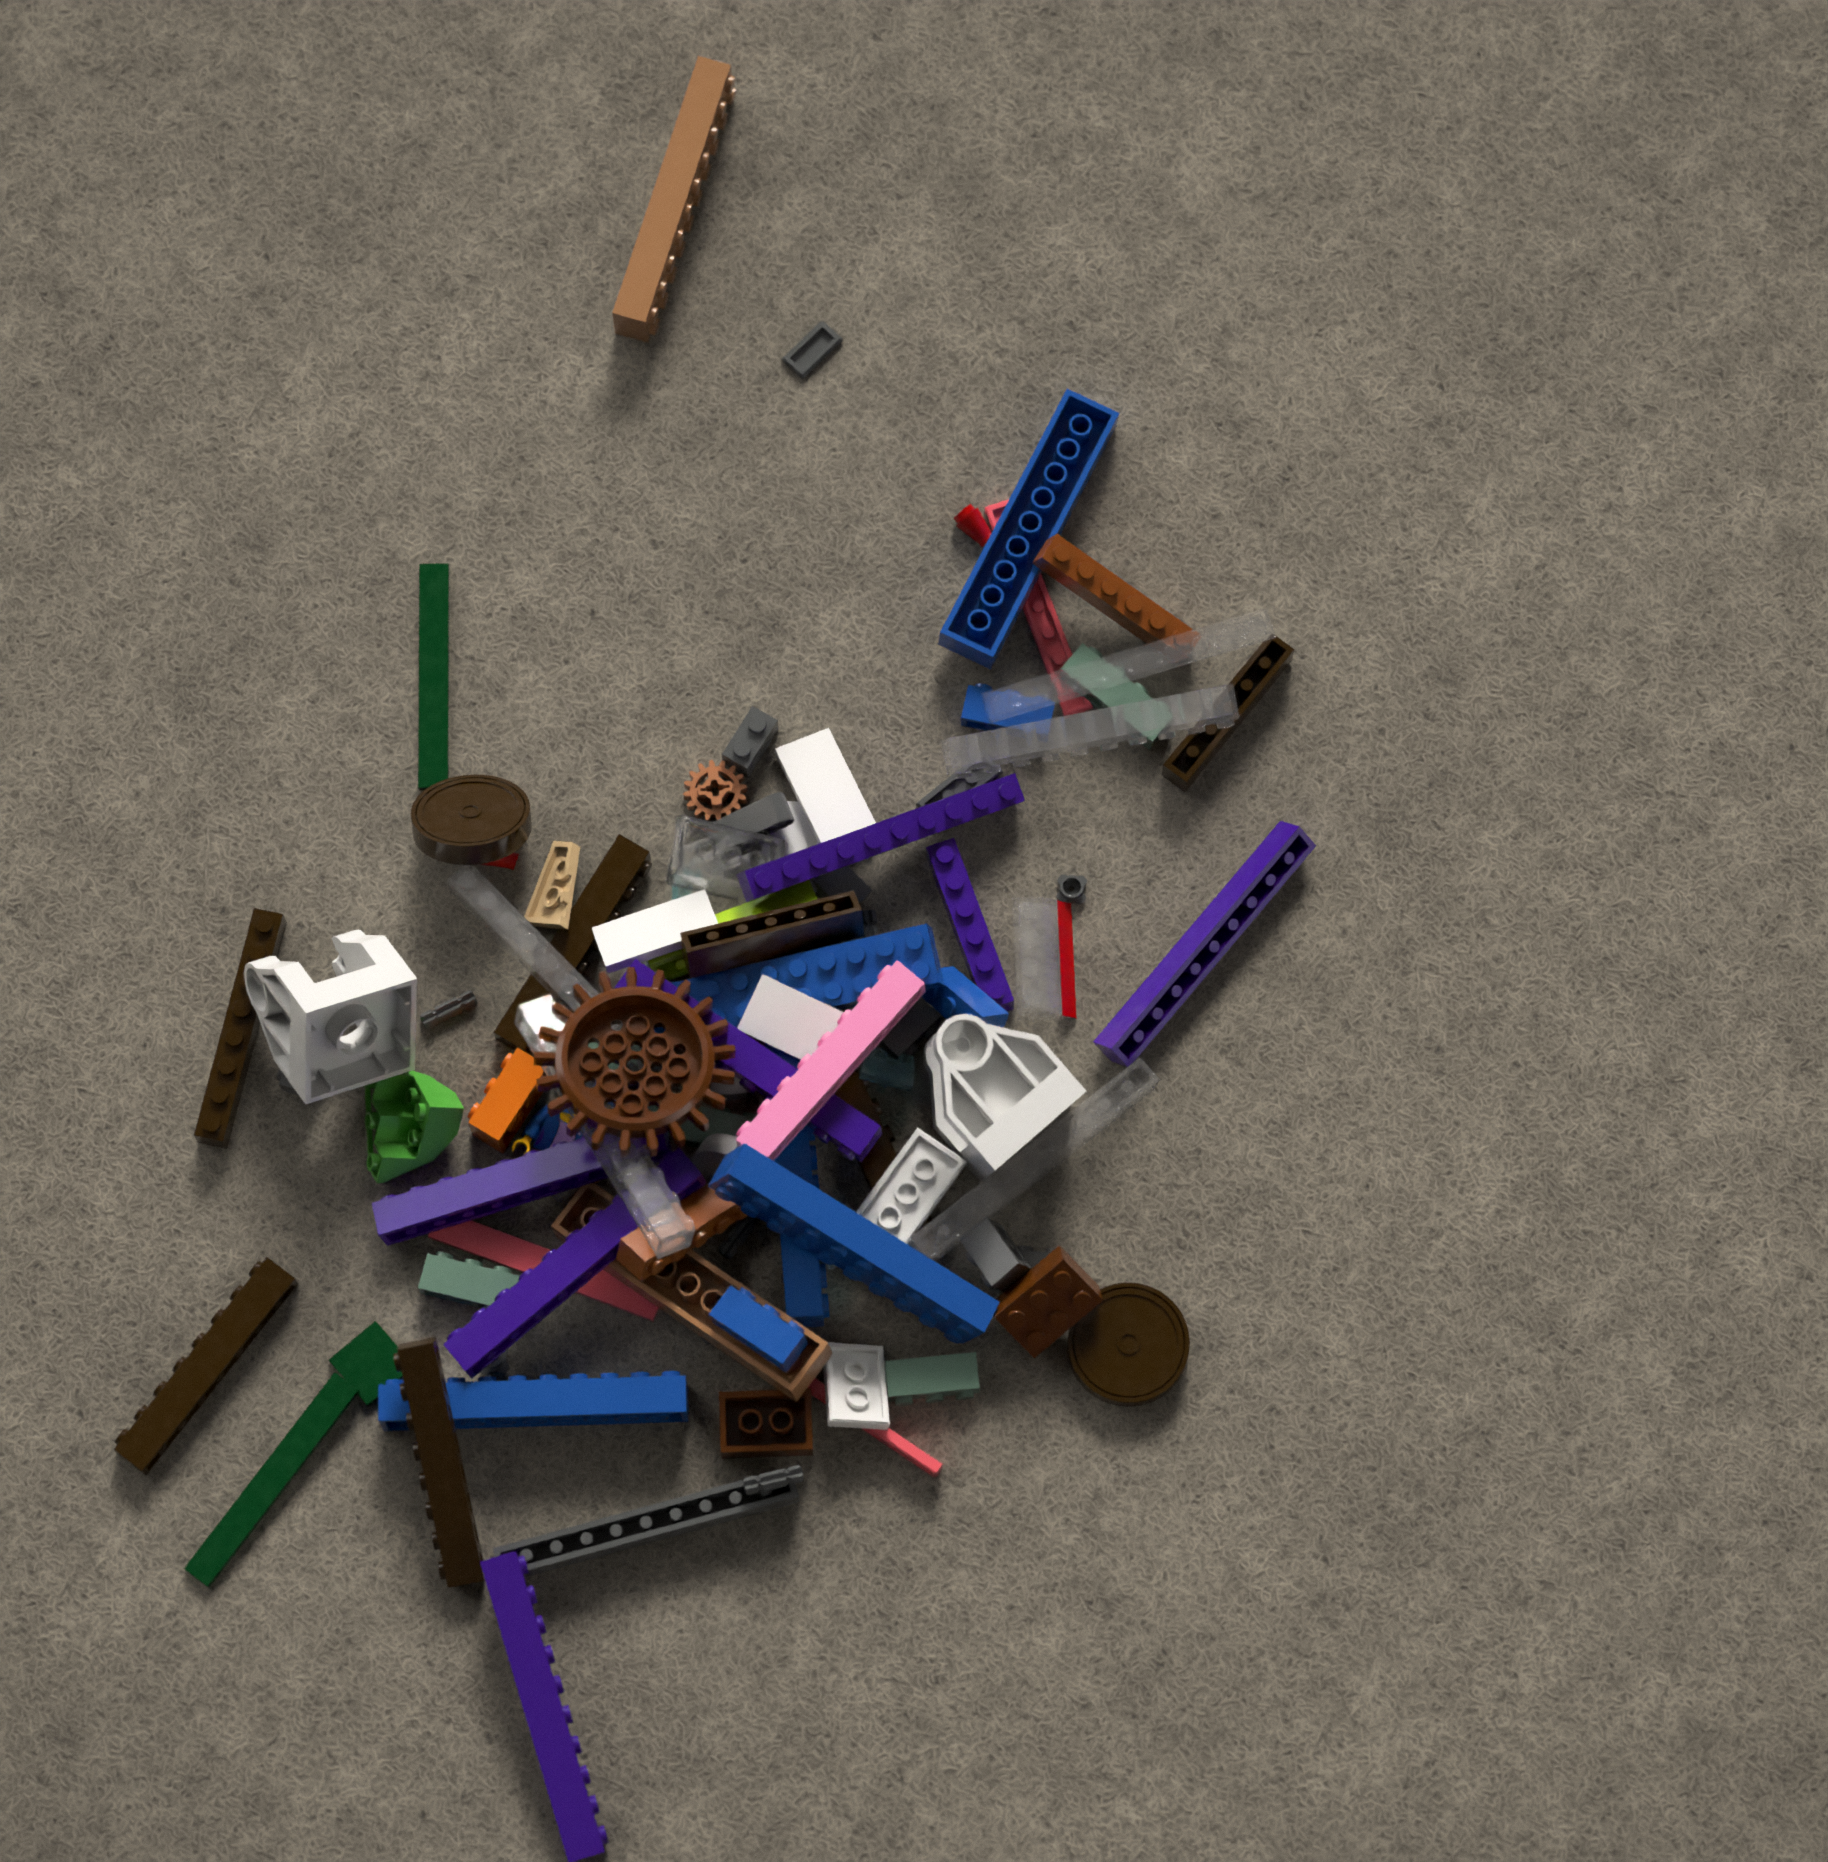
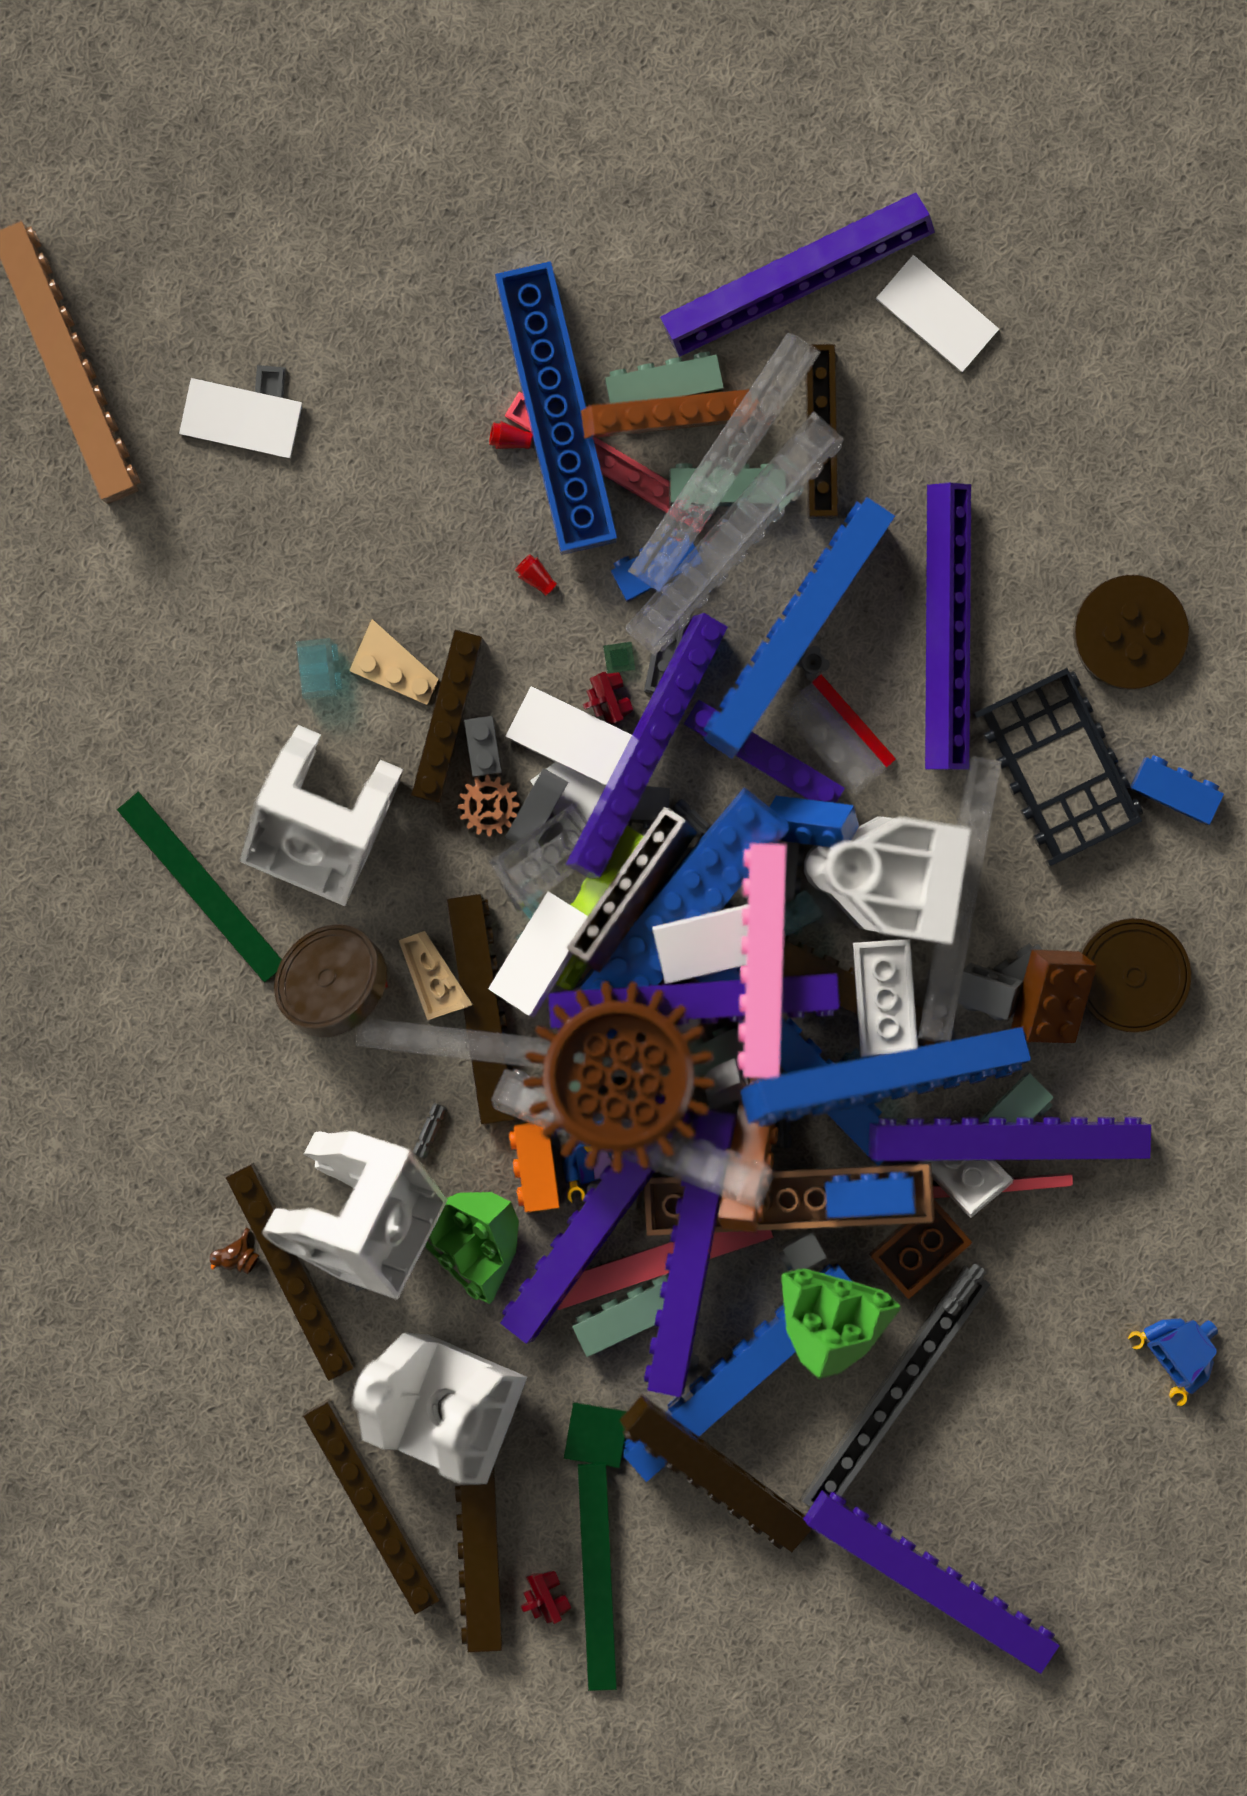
camera: 40 degrees left, 15 degrees up
(140, 1269) = (372, 1506): none -> dark brown brick
(208, 982) = (235, 1255): none -> reddish brown animal
(220, 1448) = (551, 1608): none -> dark red hips
(261, 1217) = (401, 1398): none -> white brick
(554, 695) = (309, 837): none -> white brick
(643, 1407) = (833, 1319): none -> bright green brick
(666, 1344) = (801, 1251): none -> dark grey brick
(671, 581) = (318, 668): none -> clear light blue brick
(731, 627) = (392, 666): none -> tan wing
(737, 697) = (447, 716): none -> dark brown brick
(775, 349) = (241, 418): none -> white tile
(887, 773) = (603, 698): none -> dark red hips
(905, 645) = (535, 574): none -> red cone
(913, 1689) = (1183, 1352): none -> blue torso
(914, 1388) = (1009, 1139): none -> dark purple brick
(918, 762) = (619, 657): none -> clear green tile
(1080, 840) = (803, 620): none -> blue brick
(1149, 578) = (670, 380): none -> sand green brick
(1161, 1120) = (1106, 756): none -> black window
(1288, 1224) = (1177, 789): none -> blue brick
(1309, 578) = (797, 274): none -> dark purple brick
(1353, 1068) = (1130, 632): none -> dark brown brick
(1399, 699) = (937, 313): none -> white tile

